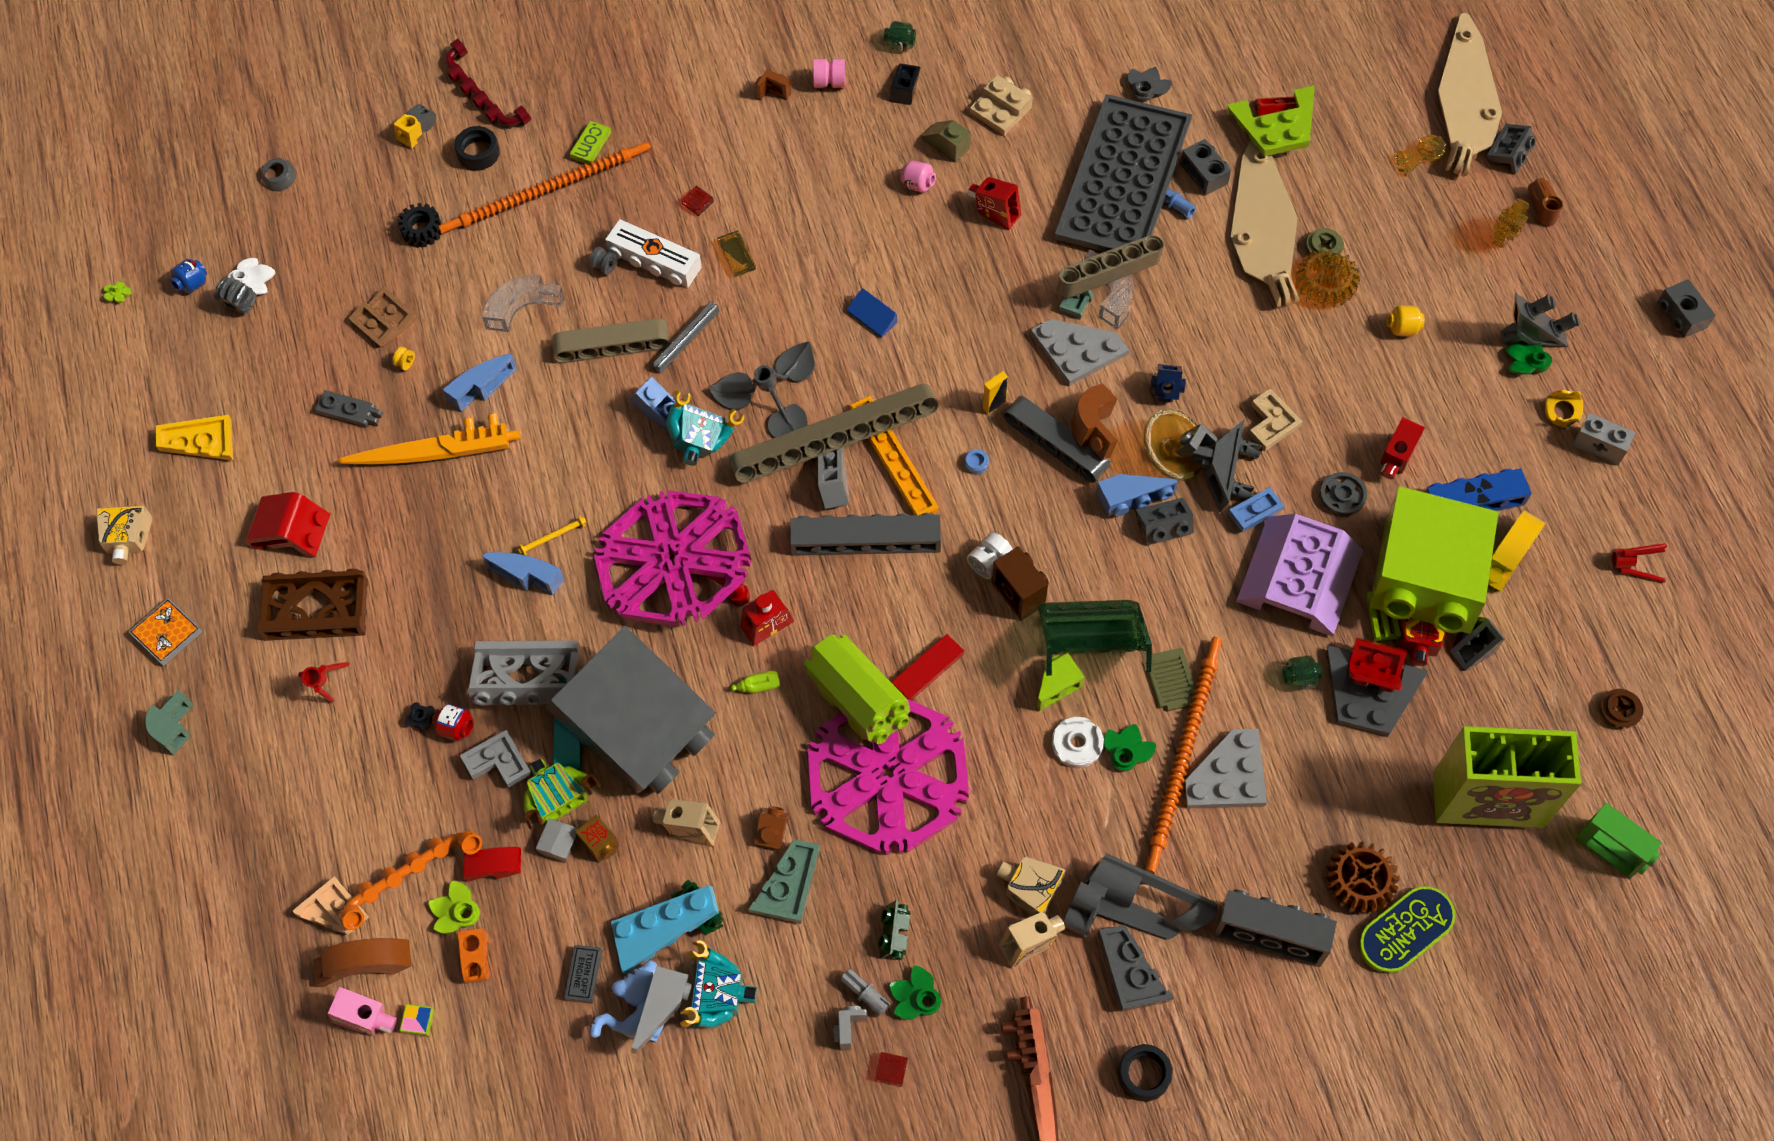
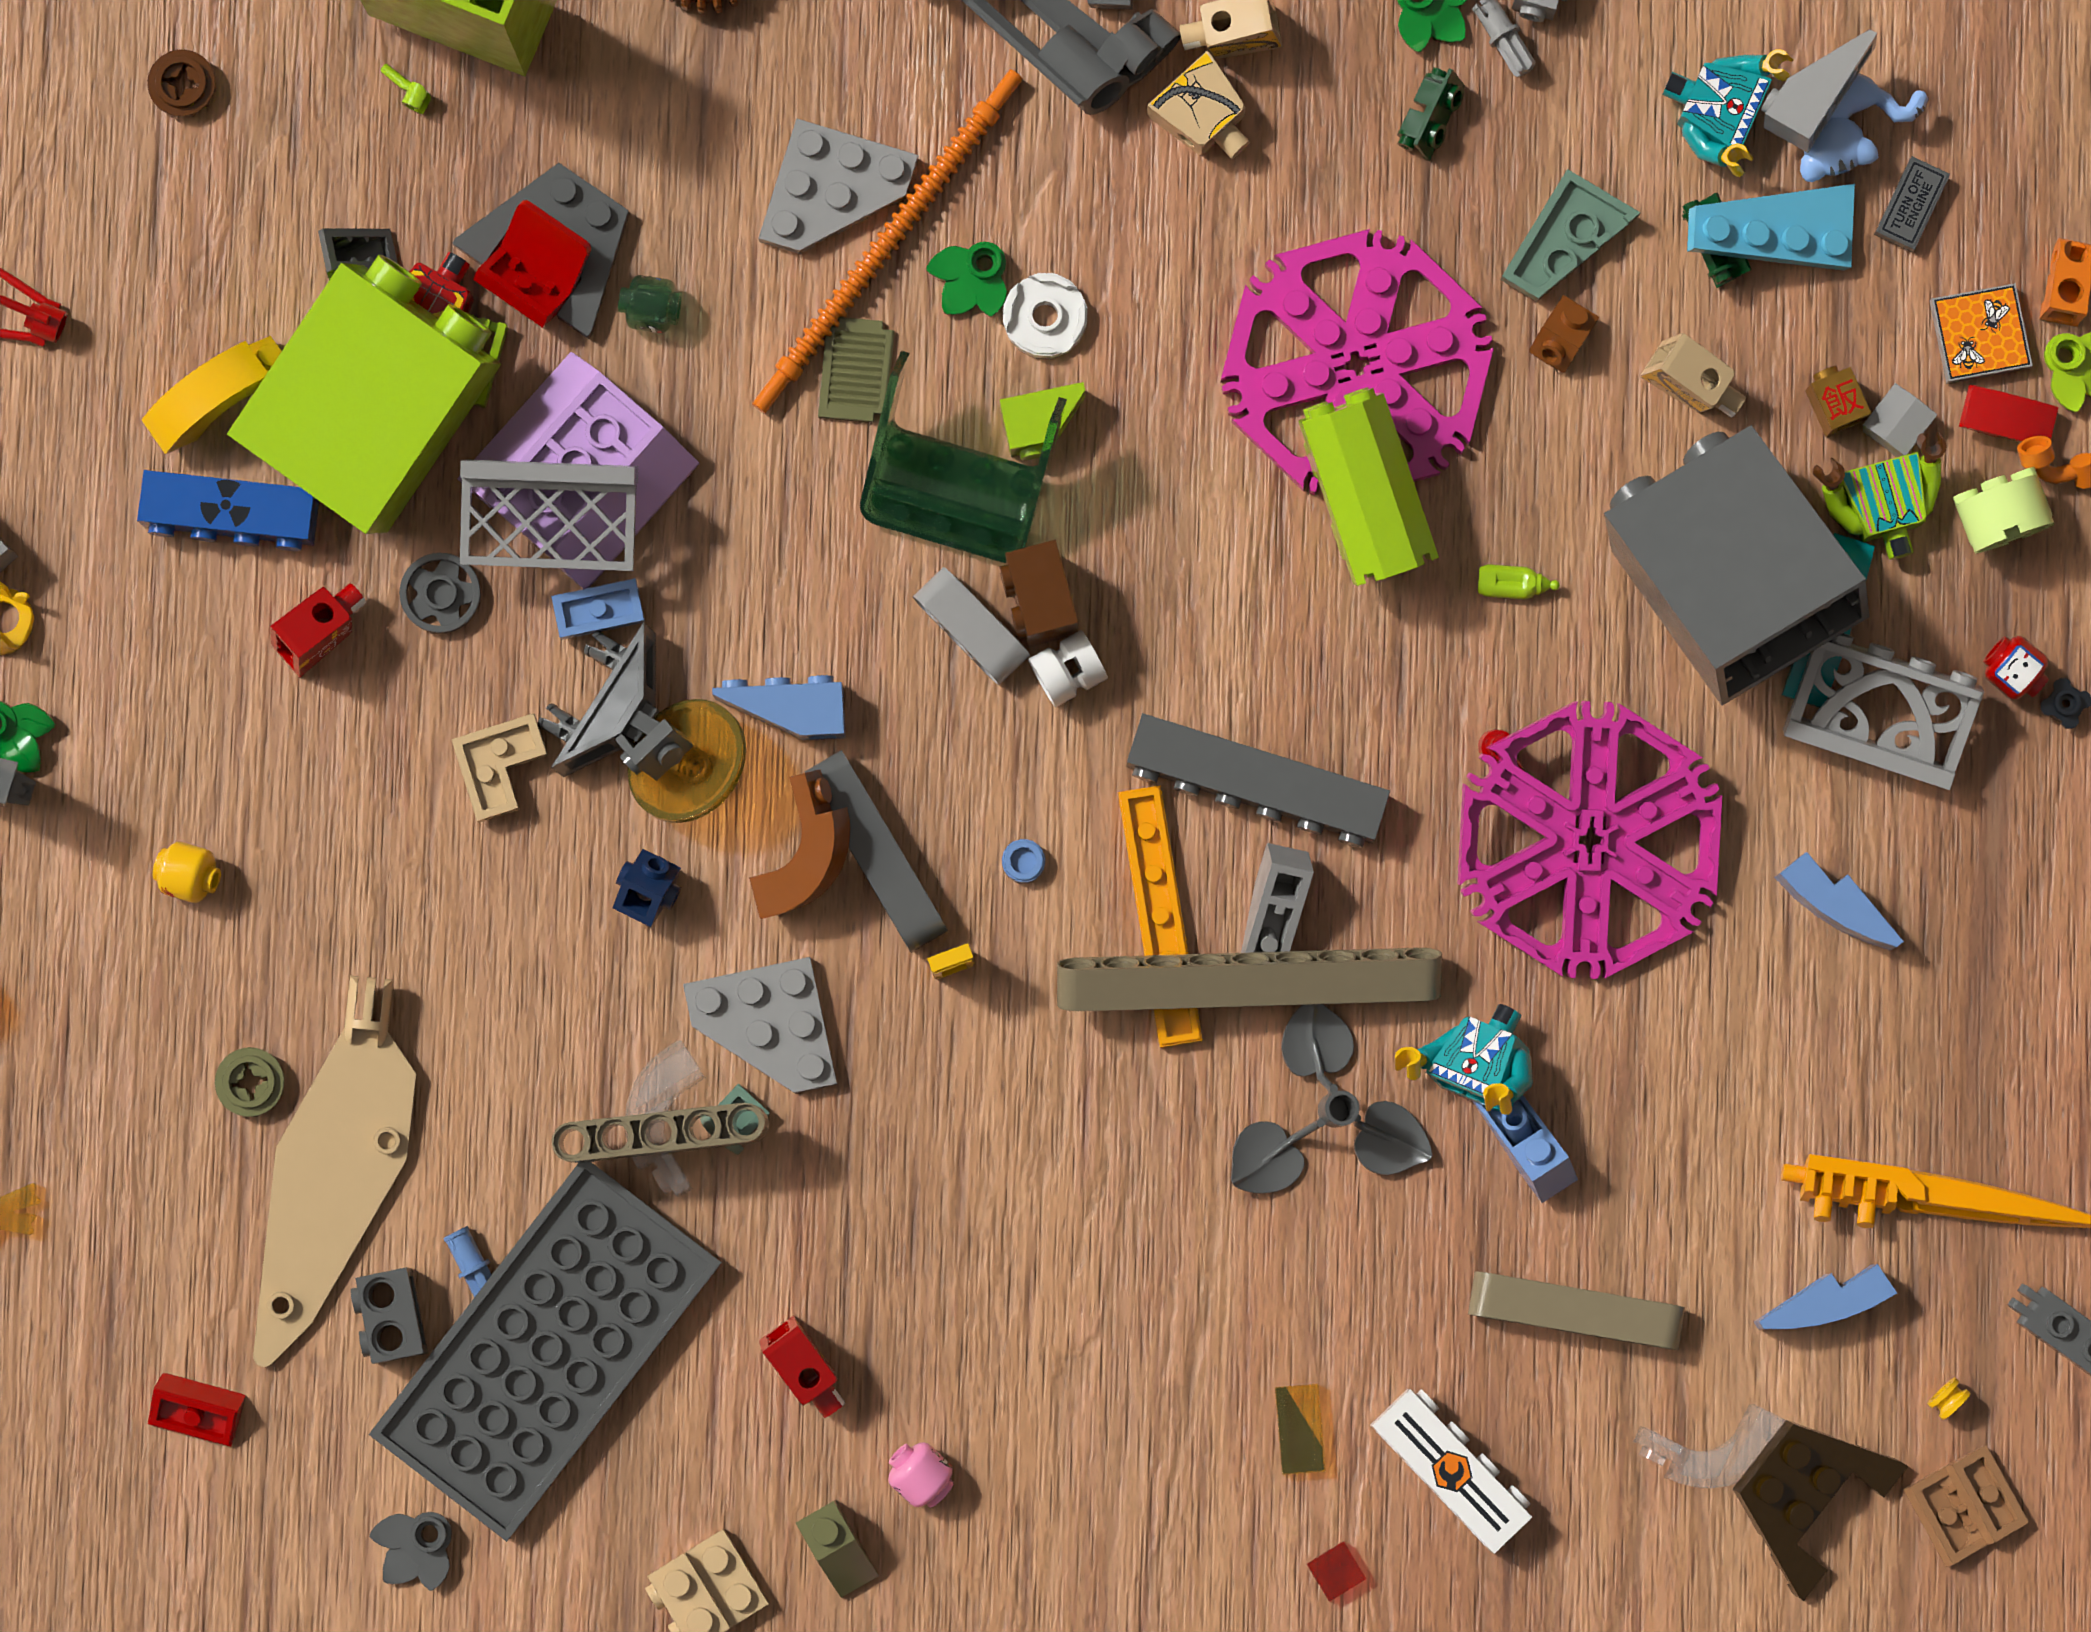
camera: 160 degrees left, 20 degrees up
(472, 296) = (1795, 1483): none -> dark brown wing
(480, 800) = (2004, 510): none -> yellowish green brick
(498, 753) = (1951, 594): light grey plate -> none
(521, 910) = (1980, 333): none -> tile
(523, 549) = (1828, 951): yellow axle -> none
(602, 260) = (1546, 1486): dark grey wheel -> none
(685, 337) = (1442, 1279): dark grey axle -> none
(764, 617) = (1465, 681): red torso -> none
(872, 313) = (1101, 1213): blue slope -> none
(928, 667) = (1234, 516): red tile -> none
(1056, 563) = (971, 625): none -> light grey beam
(1166, 521) = (754, 641): dark grey bracket -> none
(1279, 130) = (225, 1340): lime wing -> none
(1313, 545) = (548, 477): none -> light grey fence
(1325, 285) = (277, 986): clear yellow gear -> none

